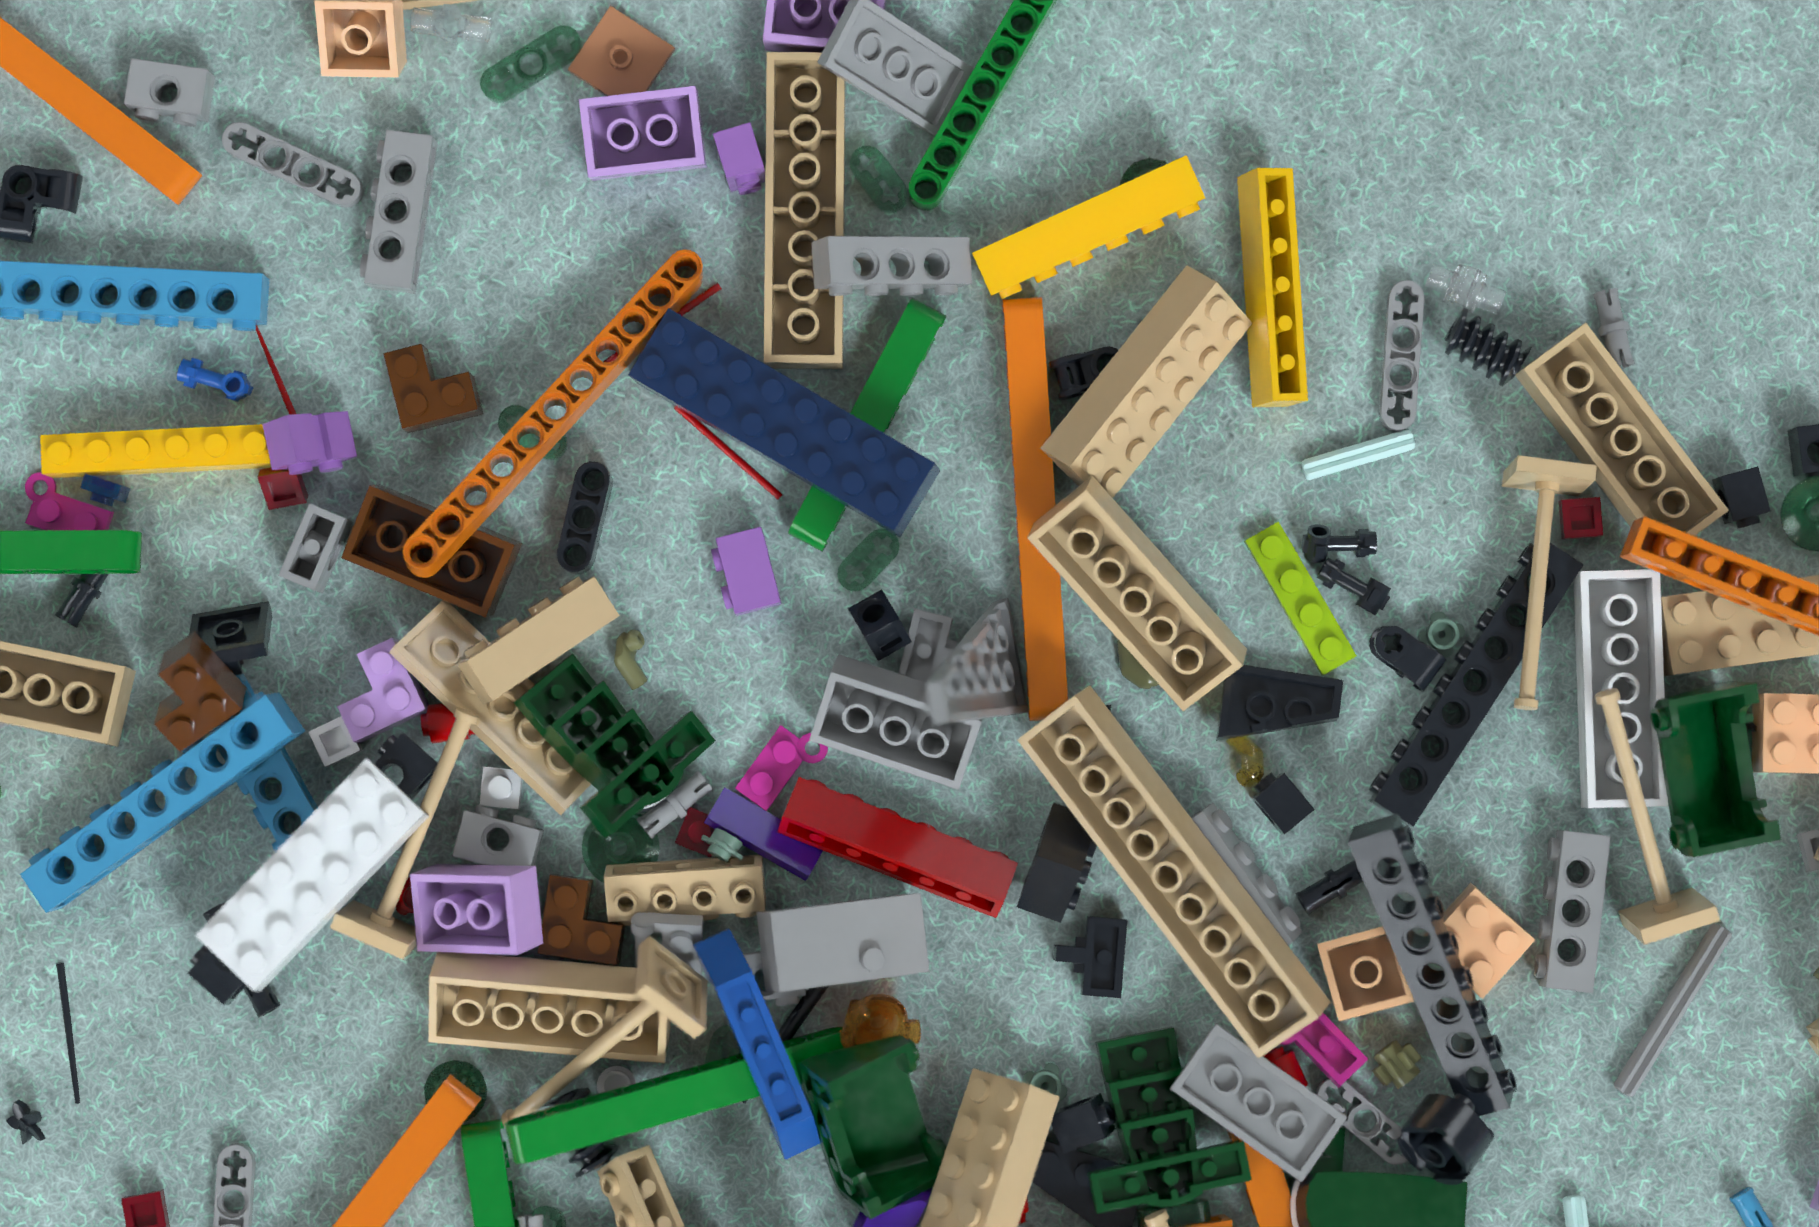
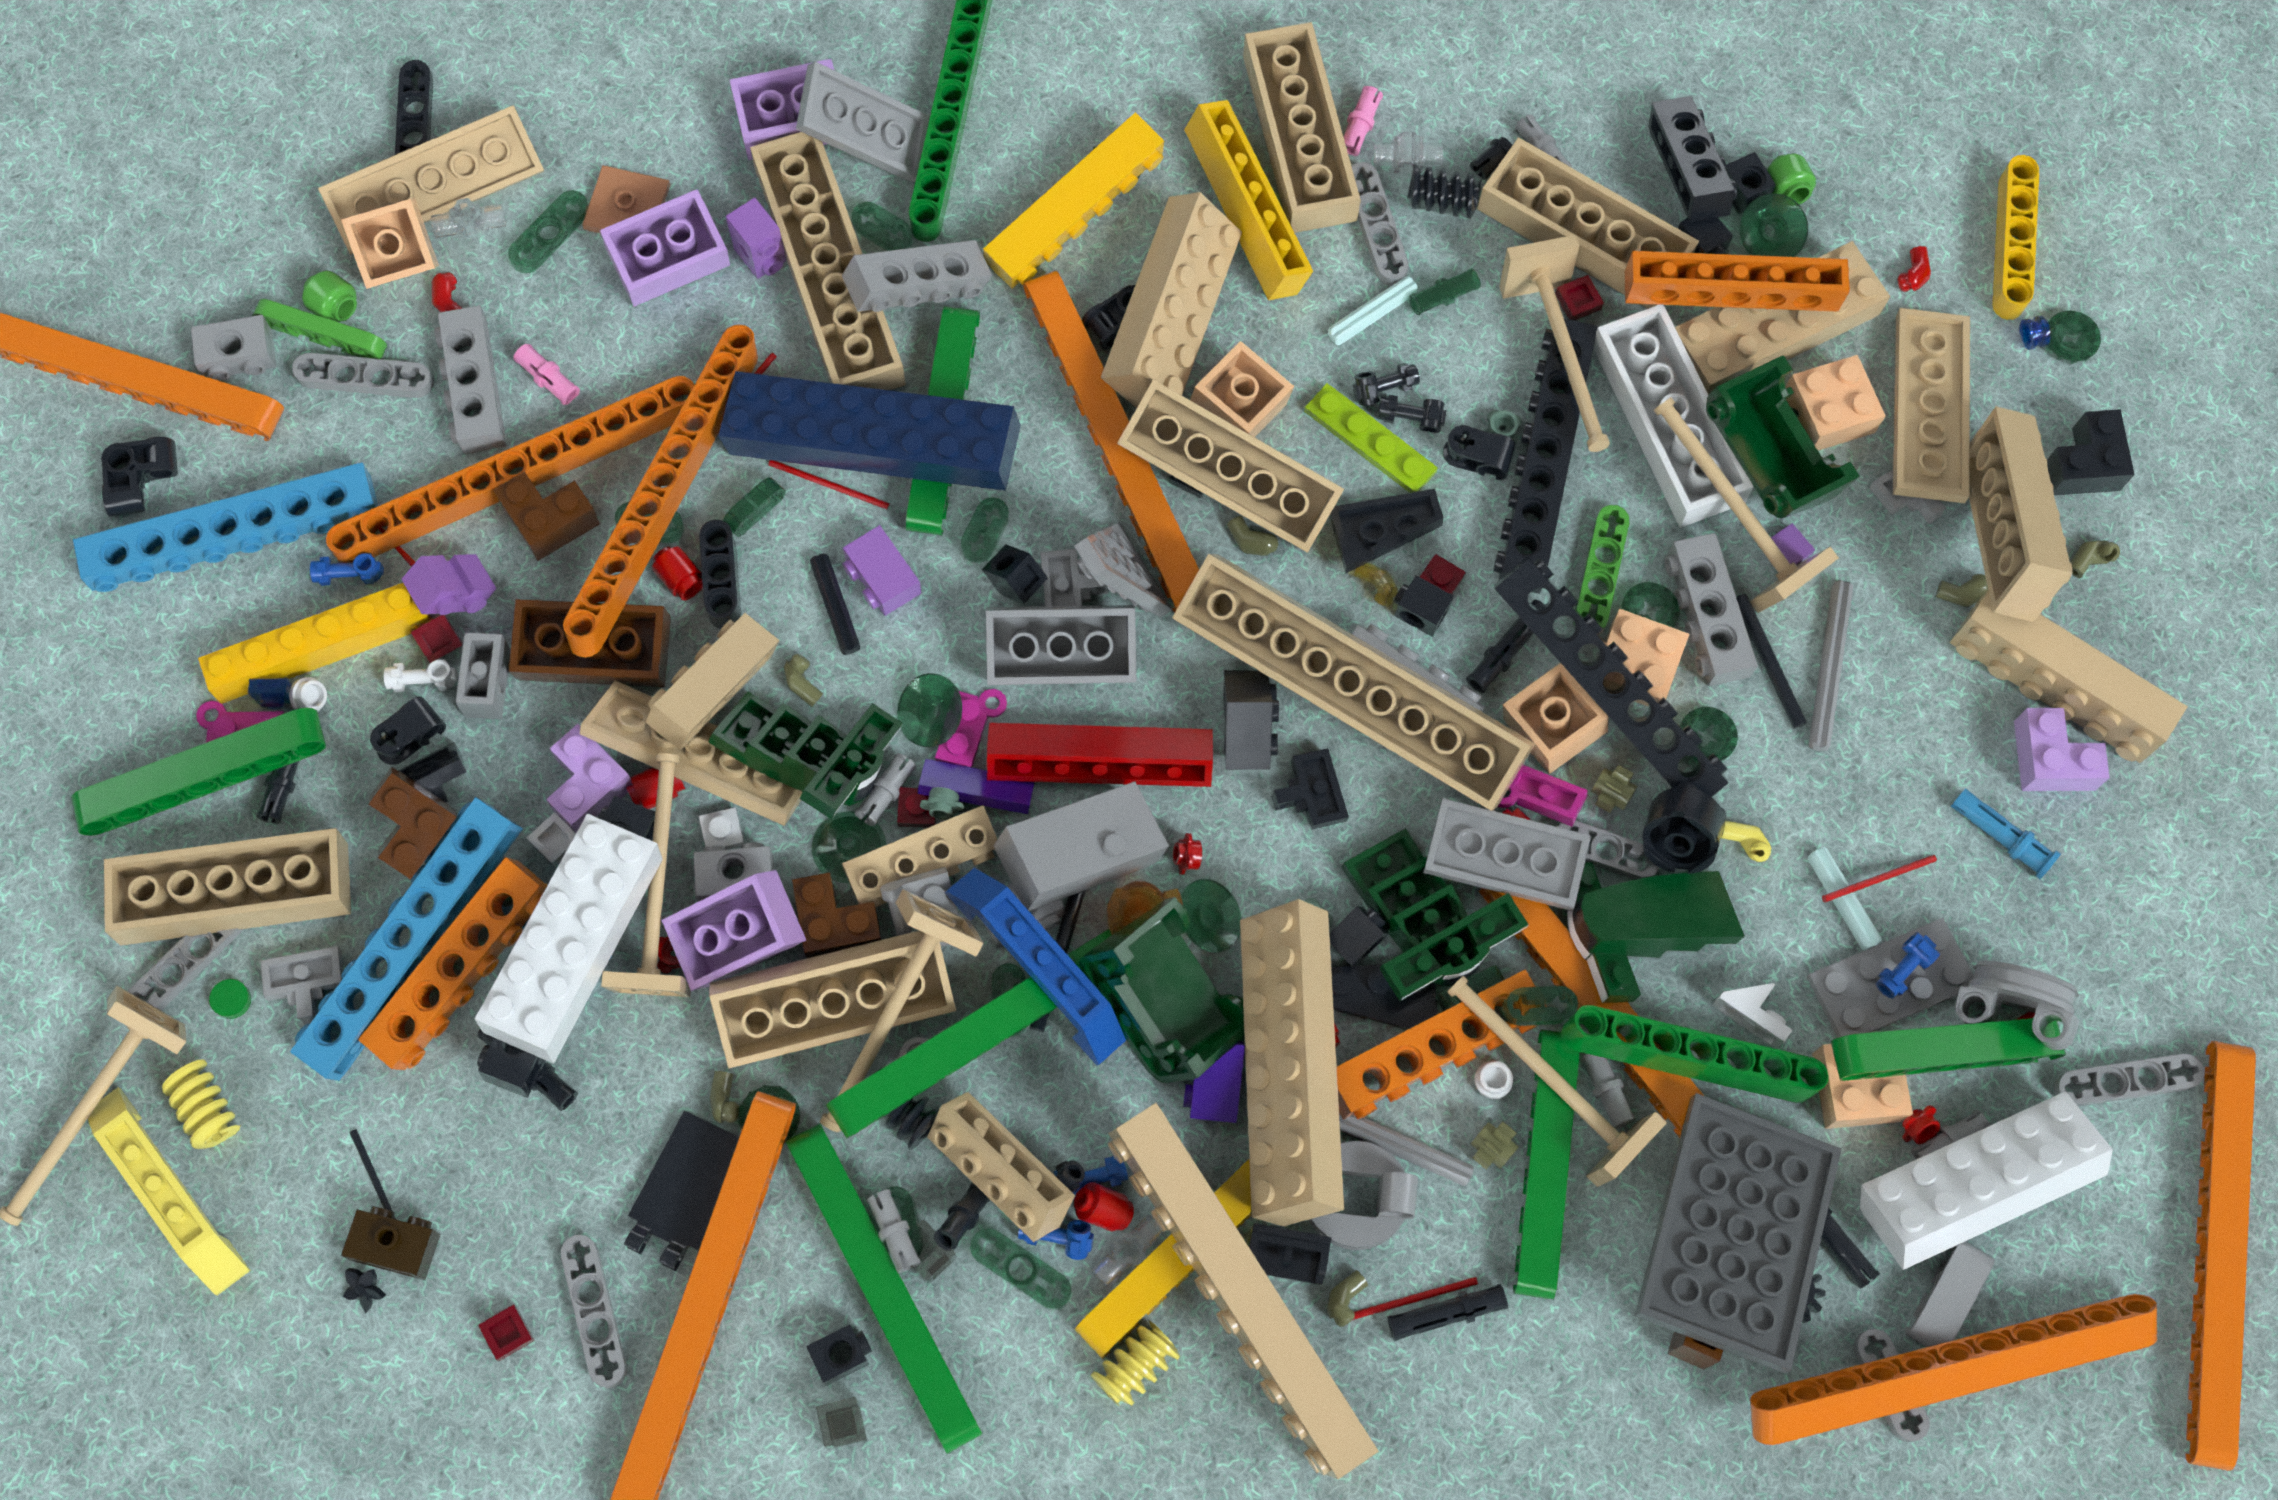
camera: 25 degrees left, 15 degrees down
(54, 798) = (302, 979): none -> light grey hinge
(64, 1091) = (391, 1243): none -> dark brown brick
(117, 889) = (387, 1033): none -> orange brick
(139, 503) = (307, 693): none -> white plate
(230, 575) = (409, 729): none -> black piece
(262, 100) = (321, 330): none -> bright green beam
(274, 526) = (438, 673): none -> white bar
(282, 67) = (329, 296): none -> bright green head
(354, 1134) = (682, 1189): none -> black tile
(396, 327) = (497, 468): none -> orange beam
(398, 102) = (441, 289): none -> red arm
(413, 1058) = (719, 1098): none -> olive arm
(479, 229) = (546, 374): none -> bright pink pin
(543, 500) = (677, 572): none -> red brick
(643, 454) = (754, 506): none -> clear green beam
(690, 587) = (835, 604): none -> black axle
(733, 741) = (918, 706): none -> clear green dish
(948, 978) = (1187, 854): none -> red plate
(958, 1052) = (1218, 907): none -> clear green dish
(1182, 509) = (1243, 390): none -> light nougat brick
(1312, 776) = (1443, 574): none -> dark red plate
(1361, 221) = (1301, 127): none -> tan brick
(1430, 230) = (1361, 119): none -> bright pink pin
(1442, 460) = (1444, 291): none -> clear green pin
(1484, 829) = (1602, 571): none -> bright green beam
(1514, 1161) = (1750, 838): none -> light yellow arm
(1526, 872) = (1657, 596): none -> clear green gear
(1534, 1038) = (1724, 730): none -> clear green gear
(1556, 322) = (1491, 157): none -> black pin
(1612, 982) = (1770, 662): none -> black bar
(1683, 871) = (1793, 544): none -> medium lavender tile
(1750, 460) = (1691, 159): none -> black brick

